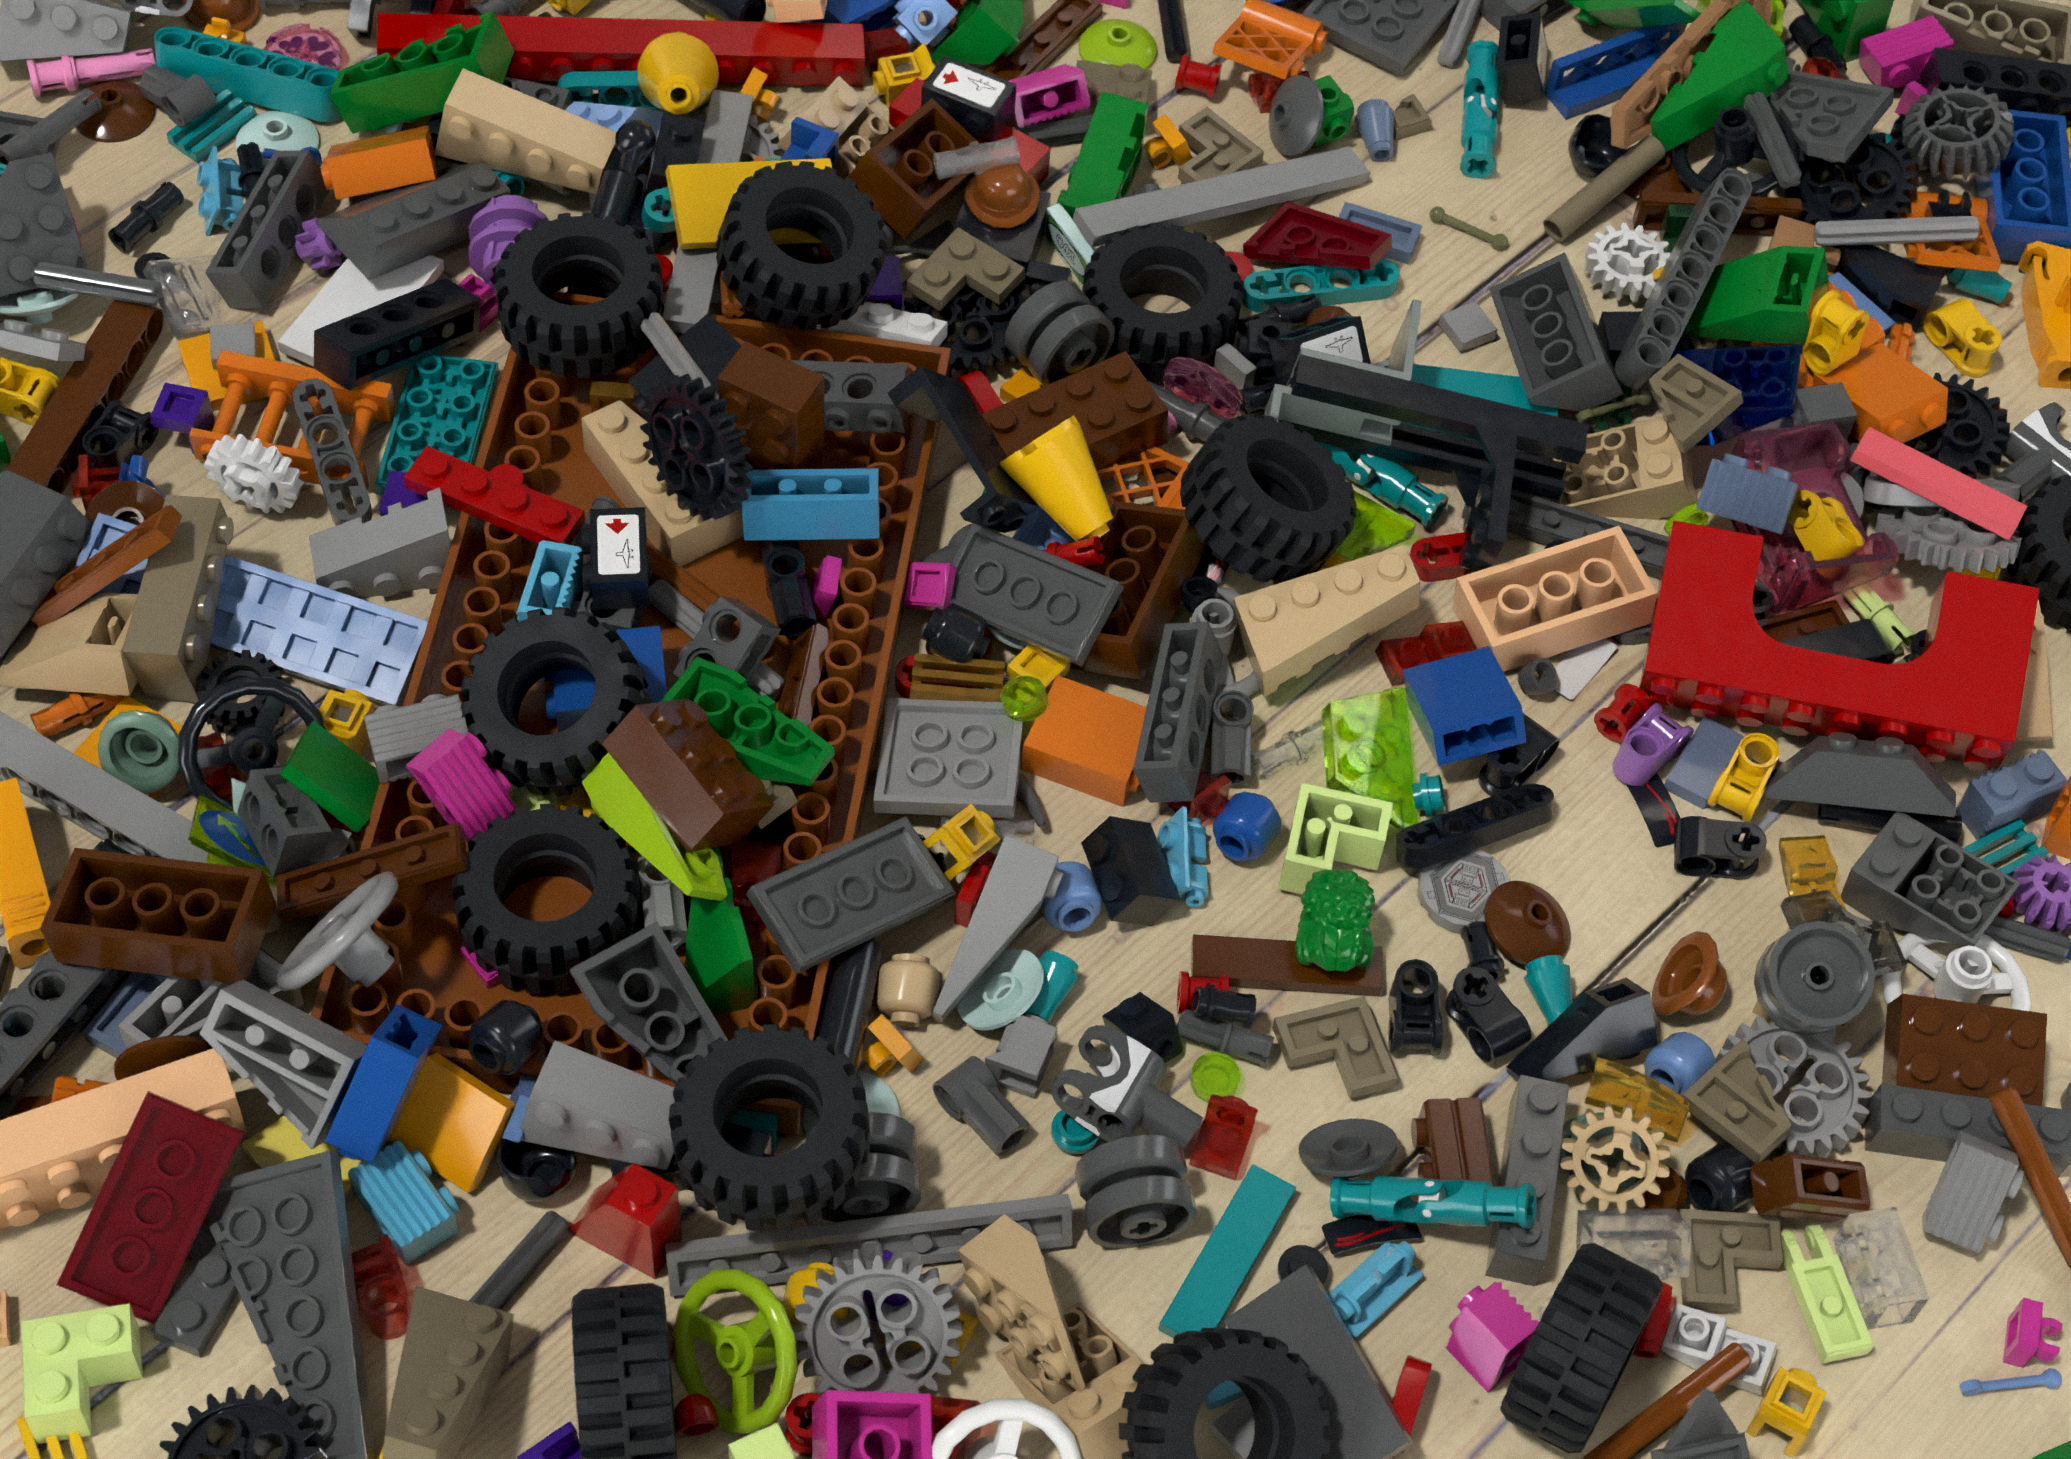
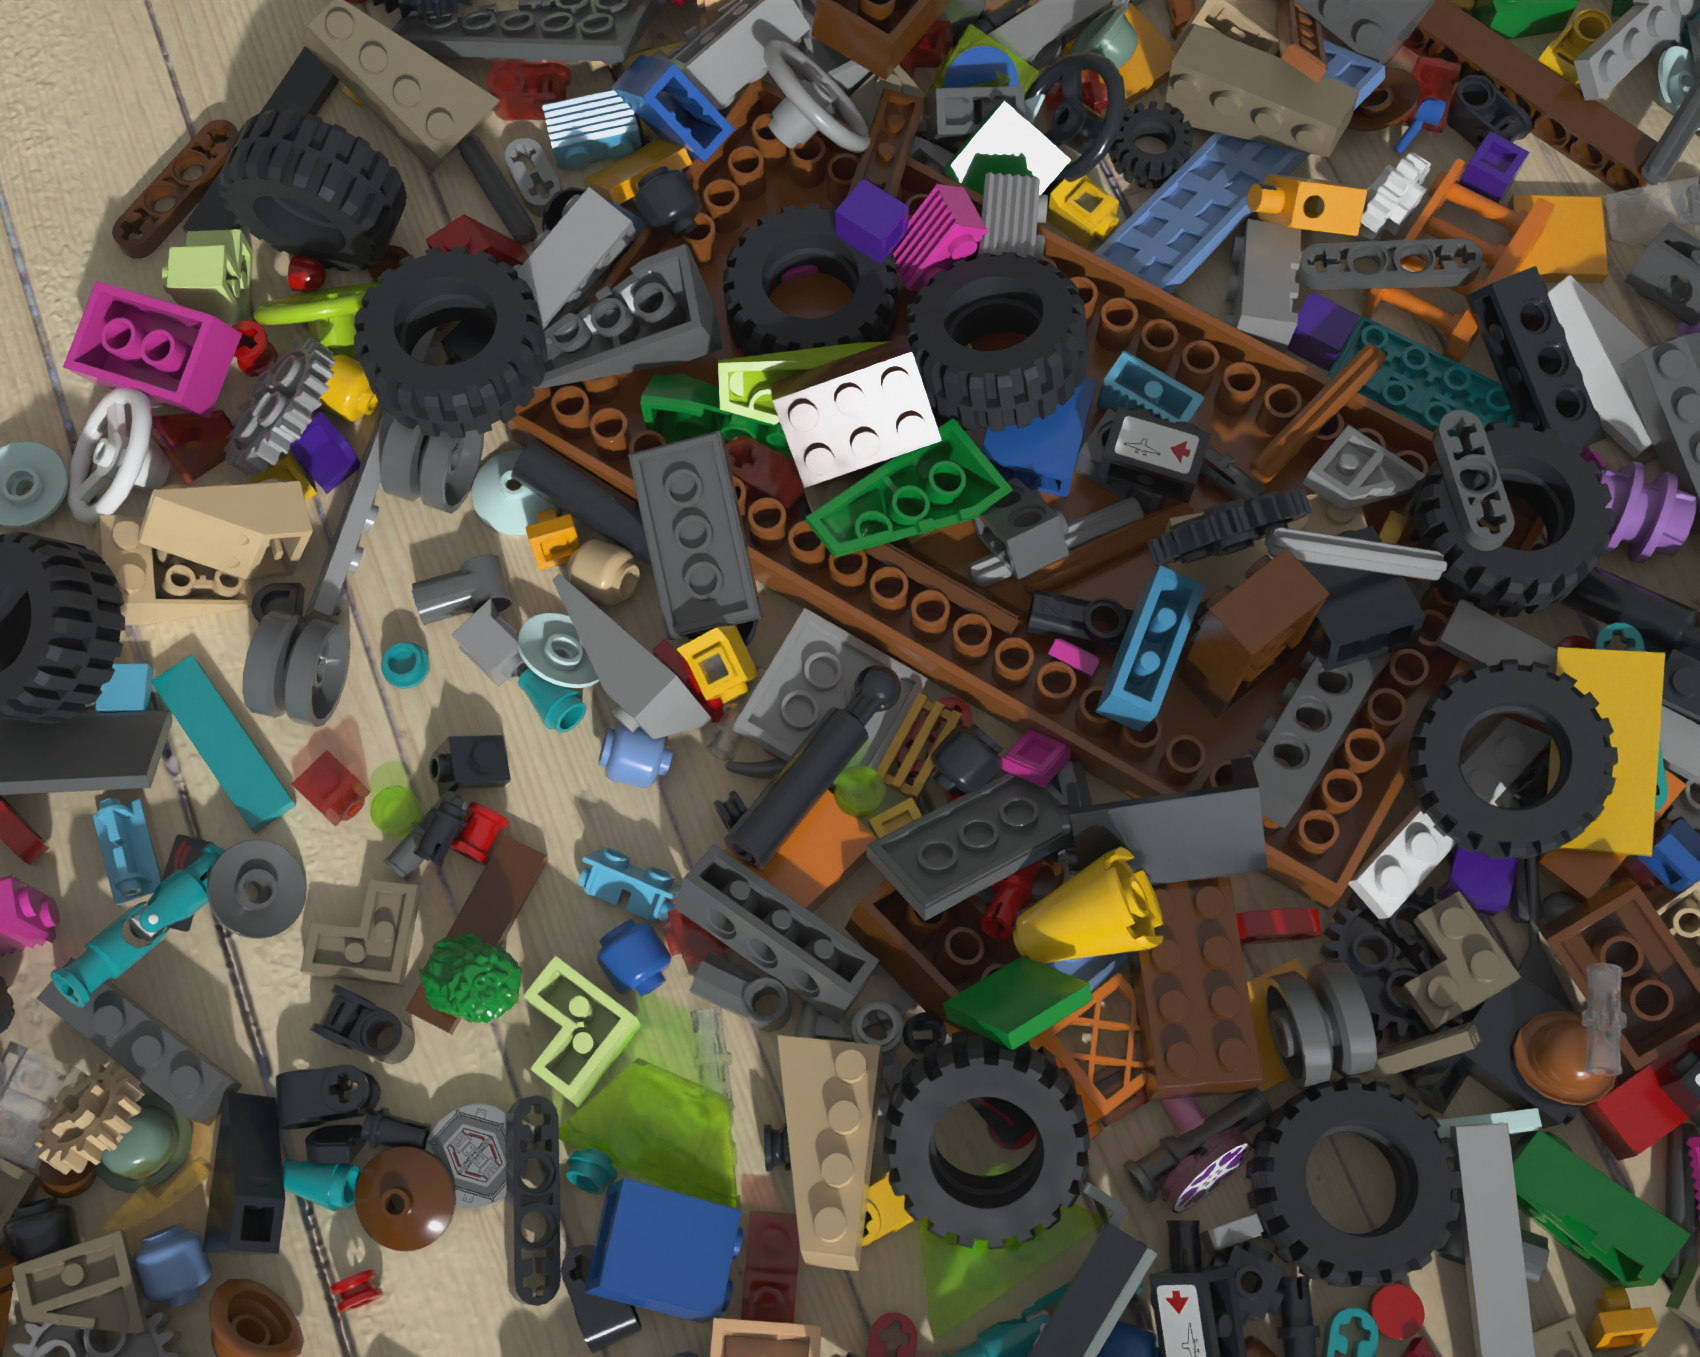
camera: 120 degrees right, 15 degrees up
(232, 338) = (1575, 236): light grey tile -> none
(287, 526) = (1295, 203): none -> light orange torso
(474, 1237) = (527, 180): none -> light grey beam
(478, 820) = (871, 221): none -> dark purple panel
(495, 497) = (1277, 379): red hinge -> none
(527, 460) = (1317, 413): none -> dark orange axle
(567, 315) = (1466, 501): none -> dark grey beam
(572, 411) = (1360, 472): none -> light grey wing
(1023, 726) = (811, 769): none -> black piece
(1037, 259) = (1426, 1050): none -> dark tan tile
(1073, 1273) = (278, 596): none -> black tile
(1083, 802) = (730, 810): none -> black bush
(1123, 1092) = (399, 713): dark grey connector -> none
(1130, 871) = (629, 816): black brick -> none
(1159, 497) = (1018, 1002): none -> green tile
(1298, 1256) = (175, 799): black plate -> none
(1337, 675) = (776, 1148): none -> black bush
(1453, 1140) = (203, 988): reddish brown brick -> none
(1522, 986) = (334, 1144): none -> black tile
(1616, 925) = (356, 1291): none -> red bush

